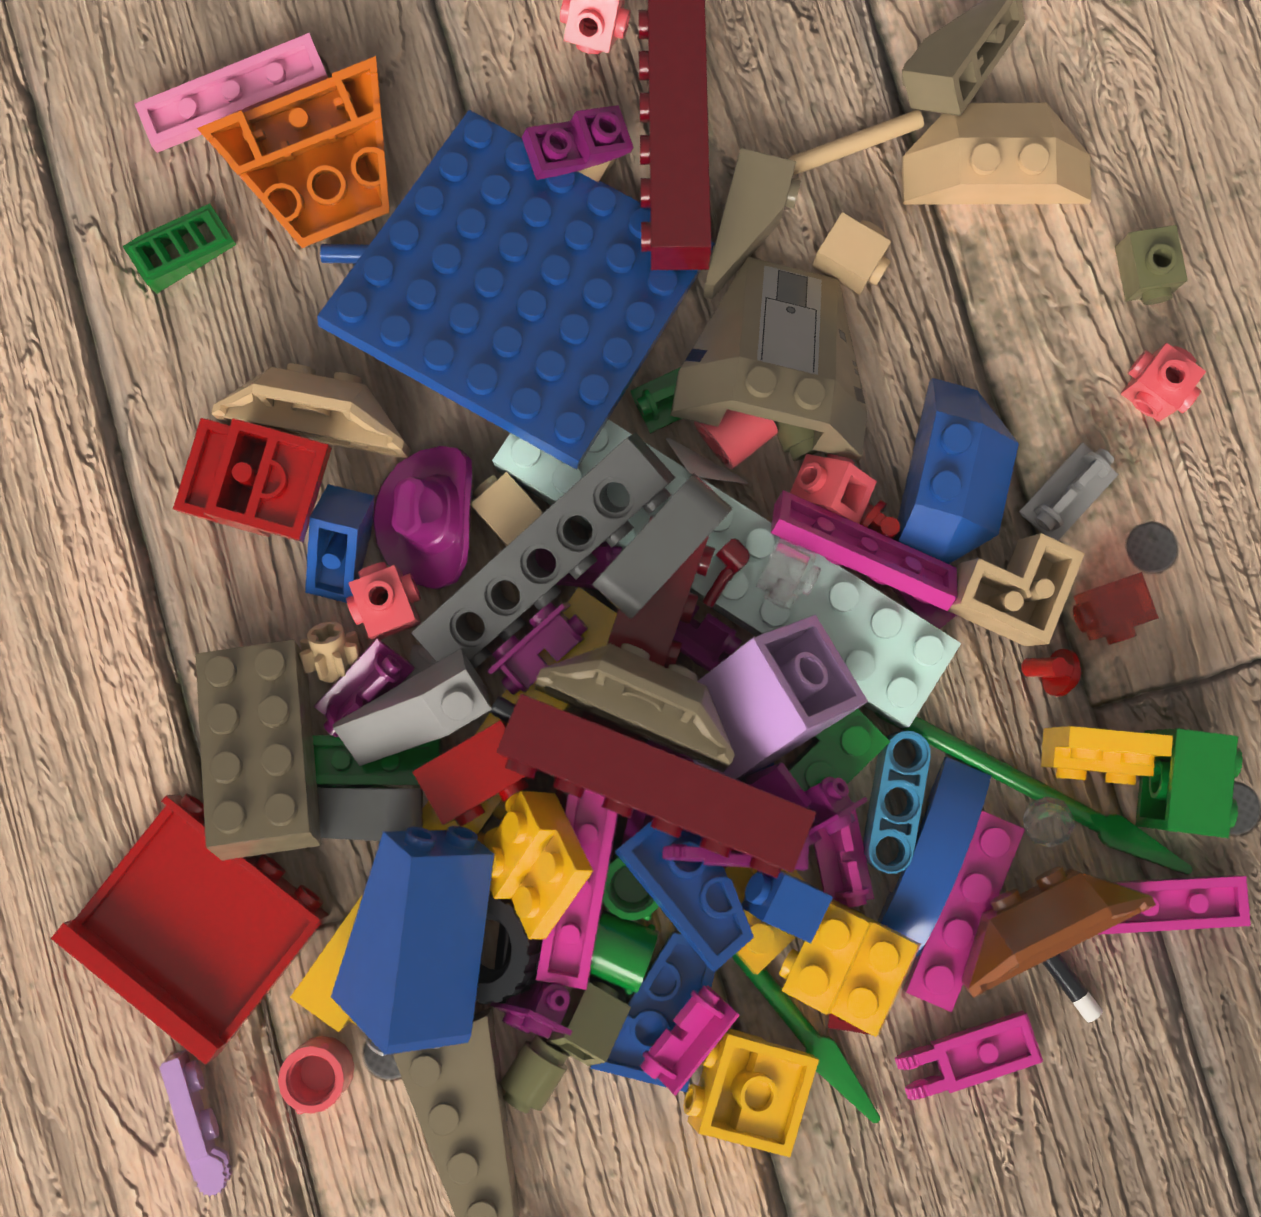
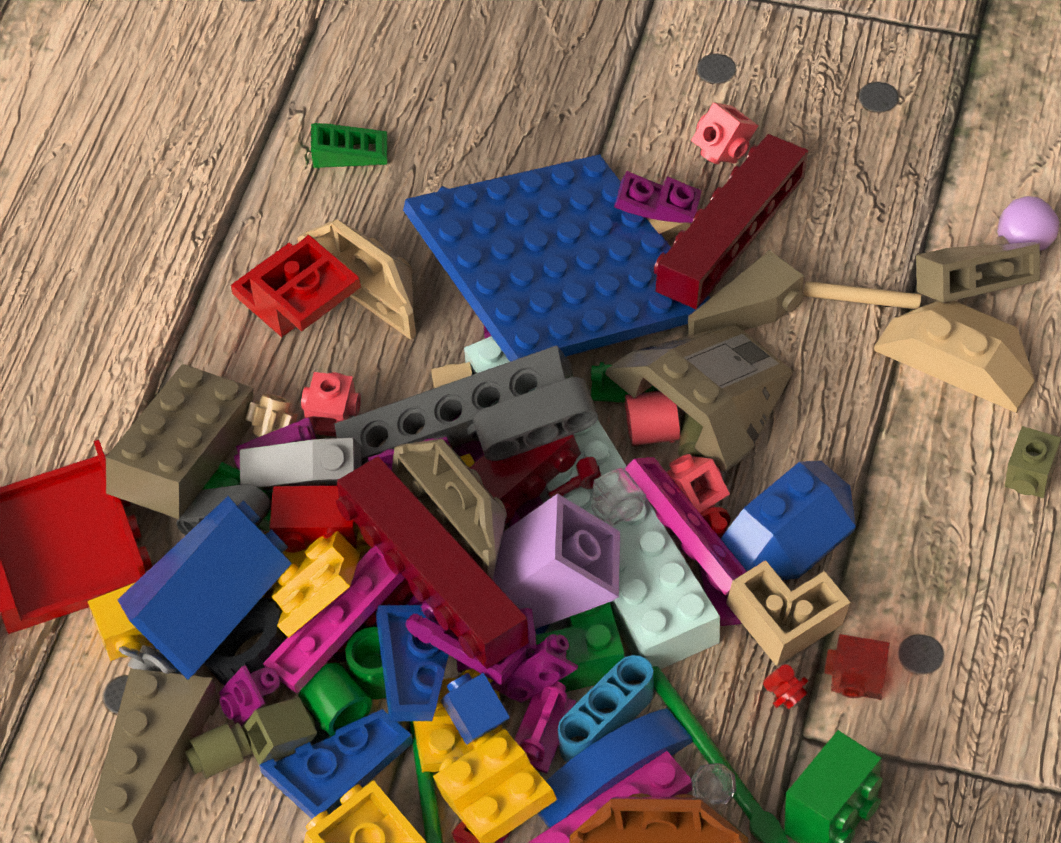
camera: 35 degrees right, 30 degrees down
(244, 85) = (448, 76): bright pink plate -> none
(313, 154) = (474, 130): orange wedge -> none
(316, 1074) = (68, 666): coral piece -> none
(338, 541) = (329, 347): blue slope -> none
(426, 516) = (396, 368): magenta hat -> none
(687, 1045) = (358, 764): dark pink hinge -> none
(702, 466) = (602, 417): white sticker -> none
(853, 253) = (811, 354): tan brick -> none
(1070, 491) = (879, 580): light grey hinge -> none
(1112, 752) = (778, 736): yellow plate -> none
(1164, 382) = (991, 538): coral brick -> none

